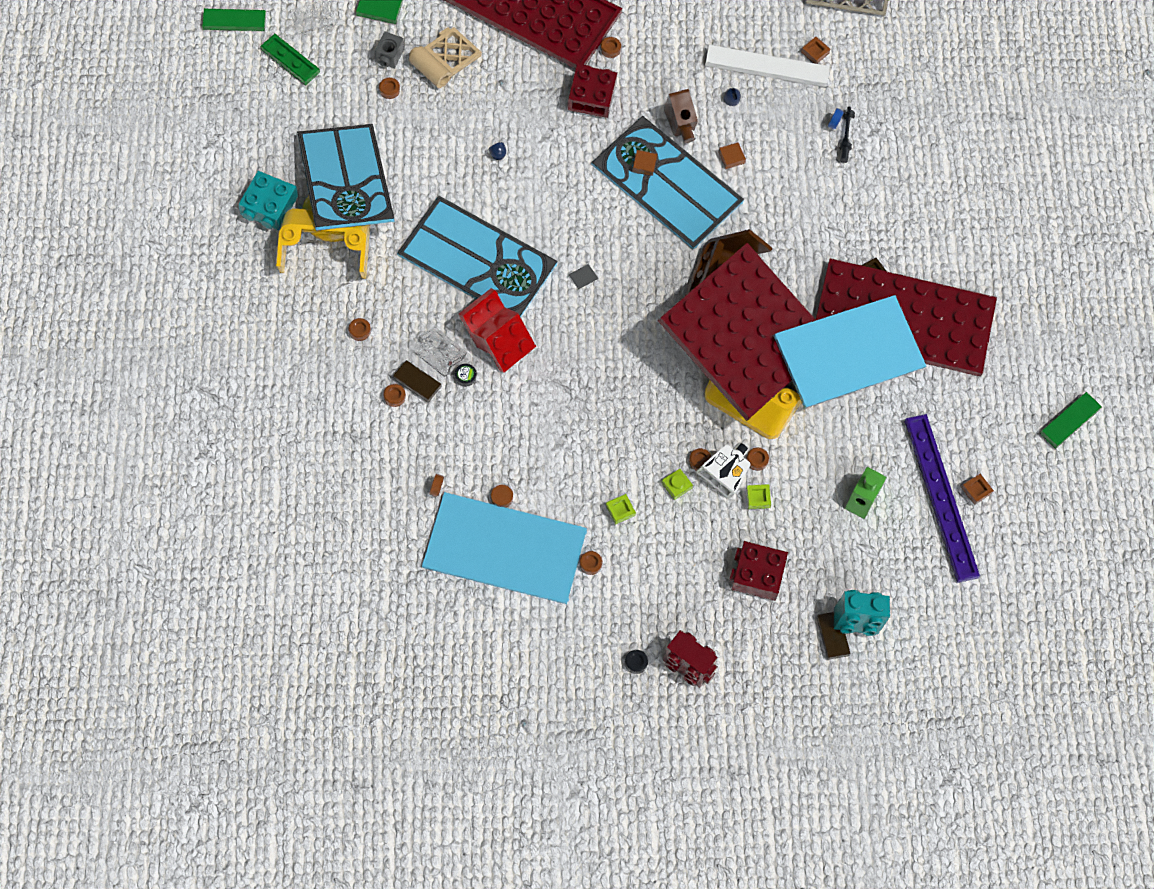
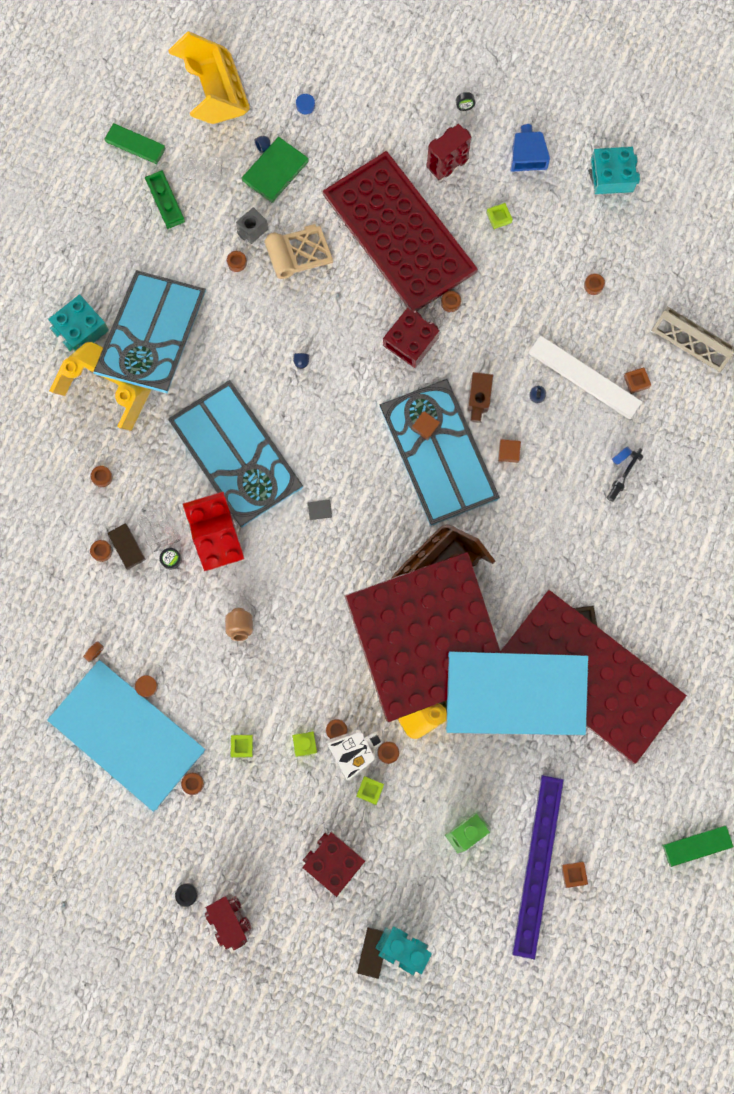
camera: 30 degrees right, 10 degrees up
(562, 404) = (239, 624): none -> medium nougat head

